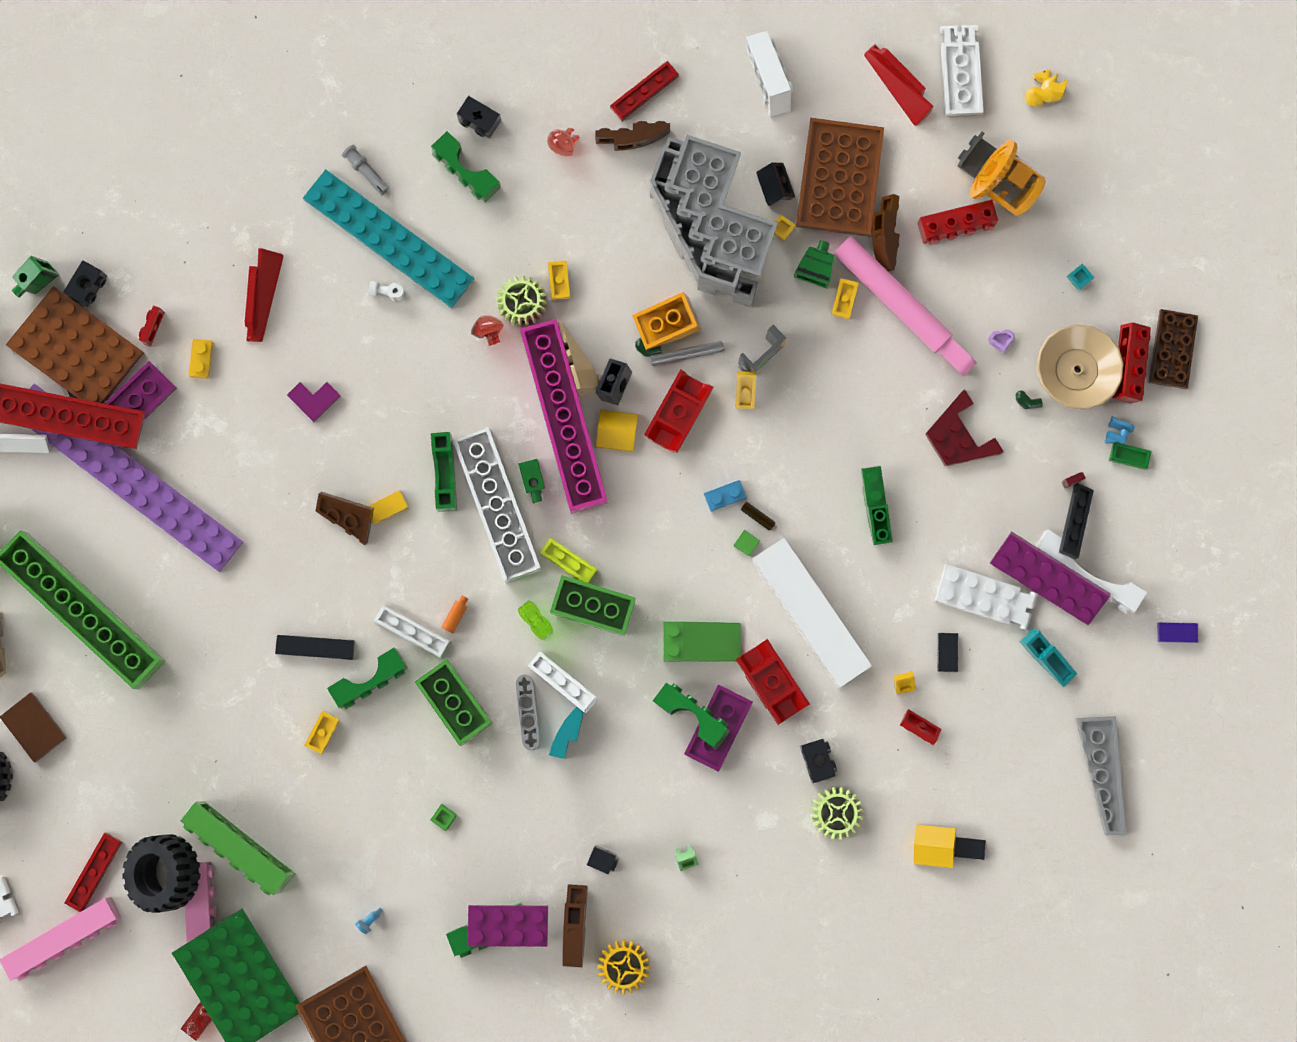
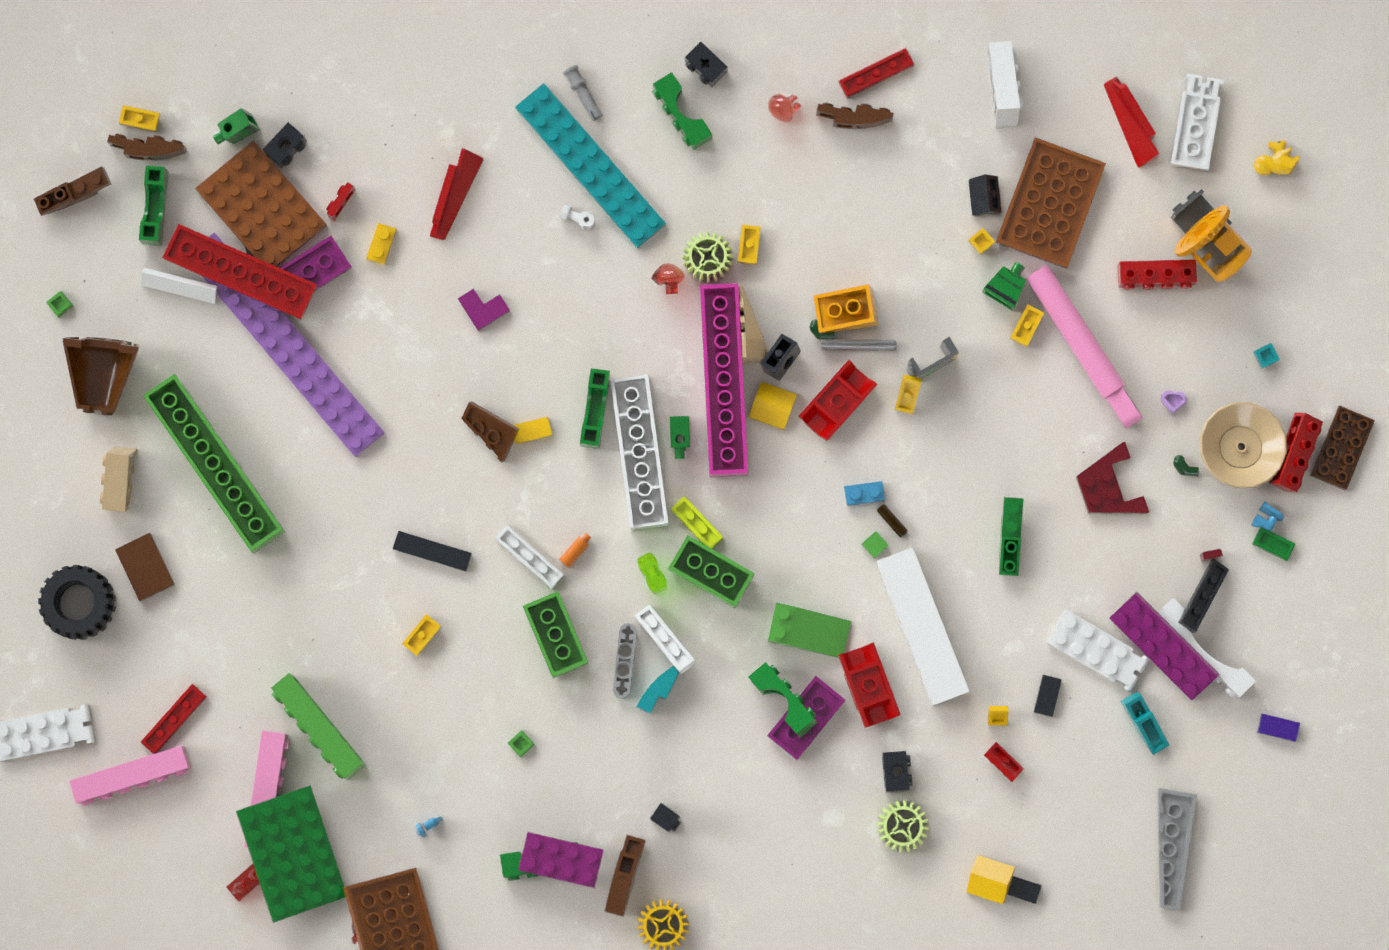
camera: 15 degrees right, 0 degrees up
(142, 879) = (221, 728): black tyre -> none
(389, 666) = (501, 585): green arch -> none
(686, 859) = (746, 837): bright green tile -> none
(711, 237) = (910, 240): light grey brick -> none
(883, 235) = (1080, 275): reddish brown slope -> none

